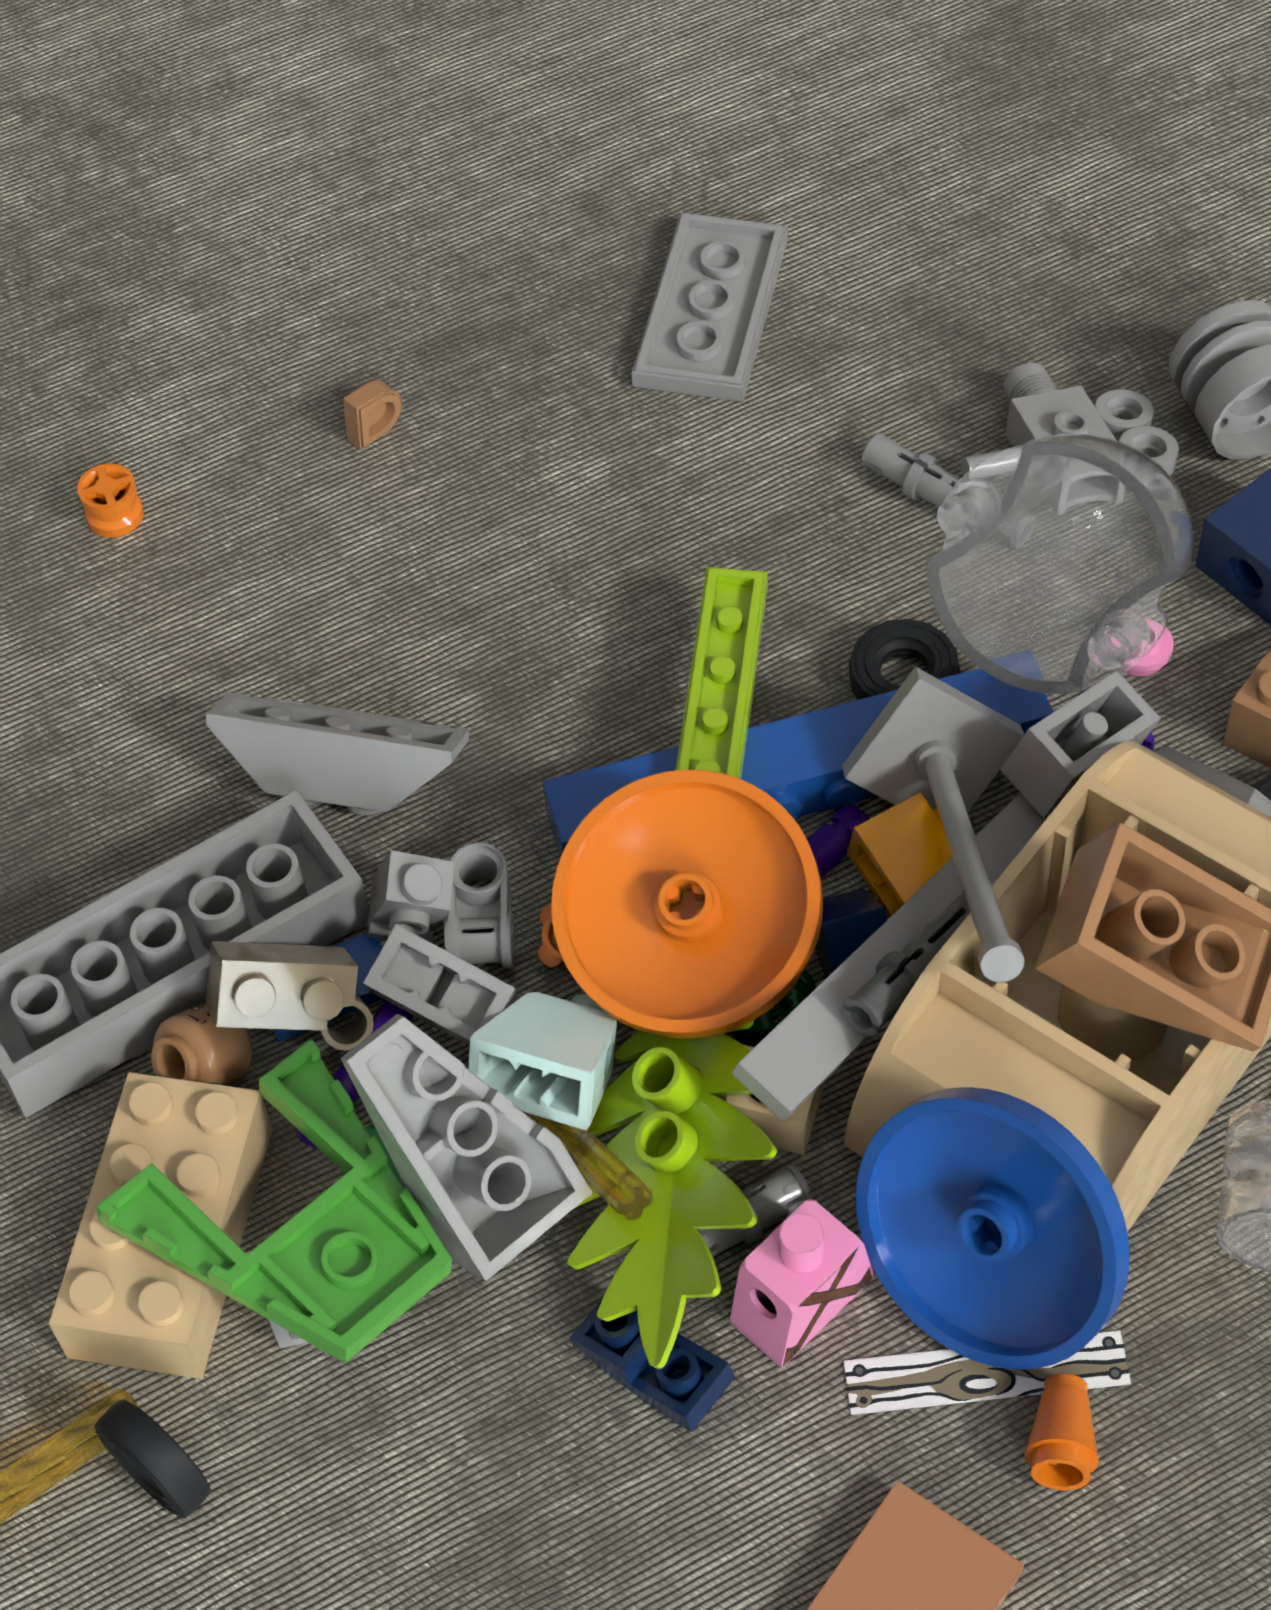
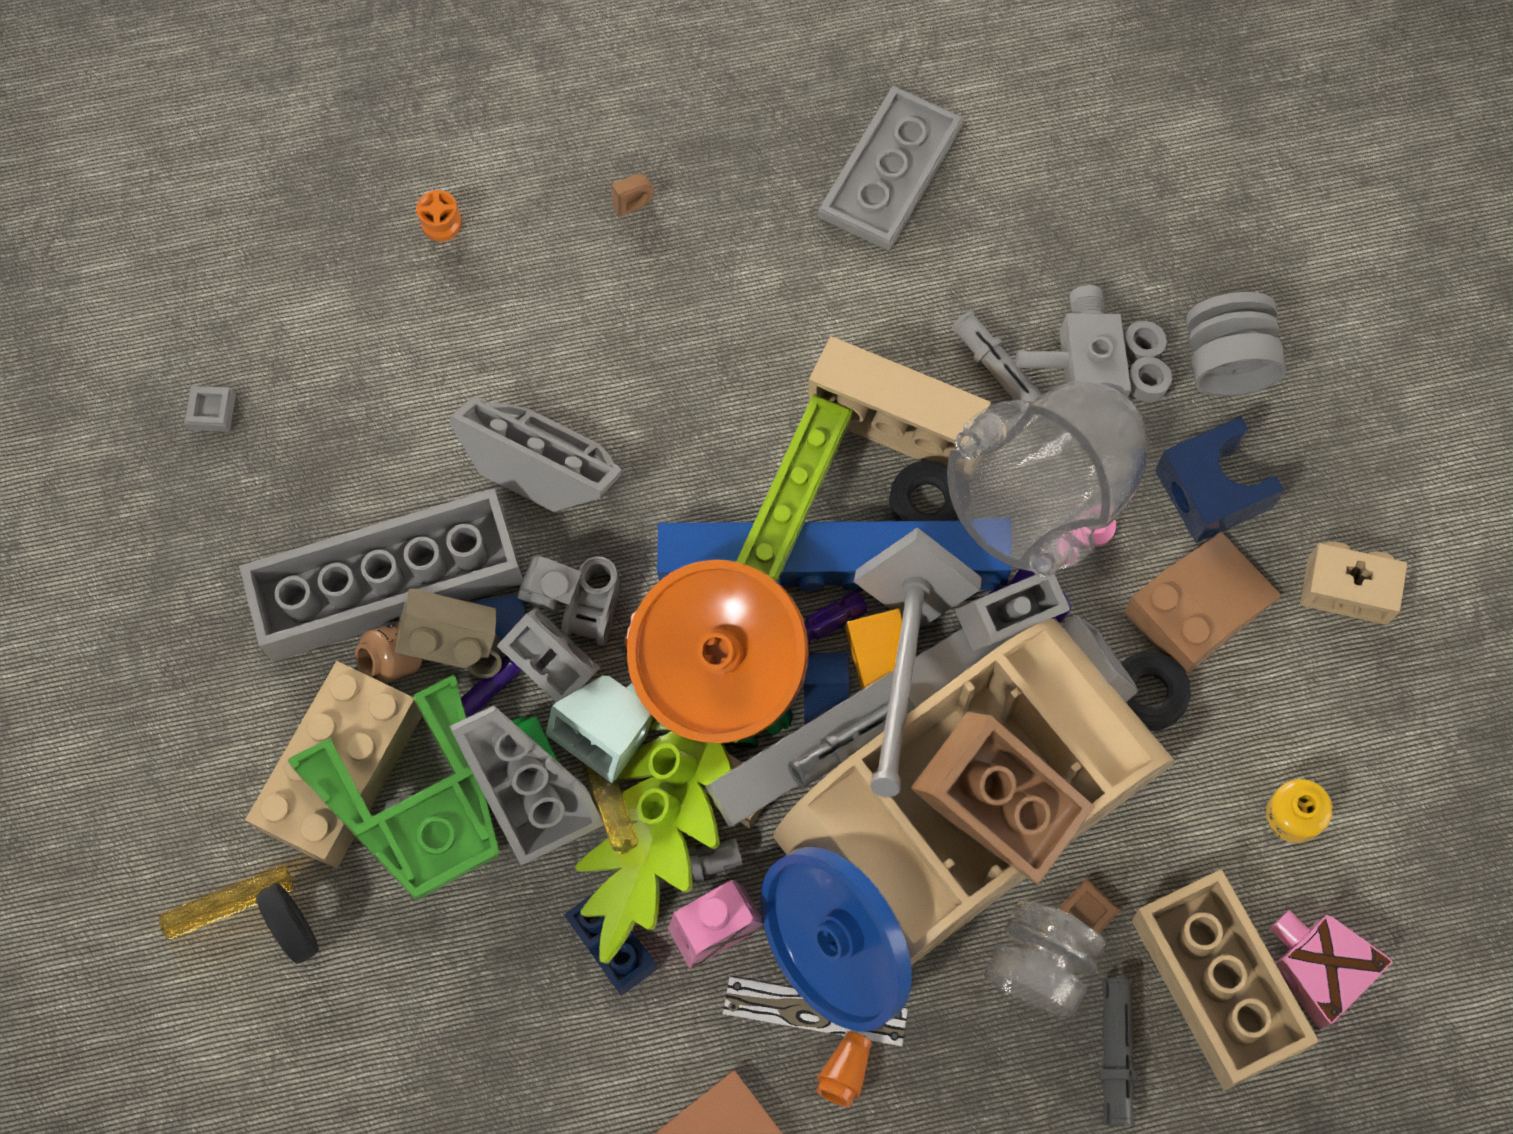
camera: 15 degrees right, 15 degrees up
(825, 554) = (893, 401): none -> tan brick

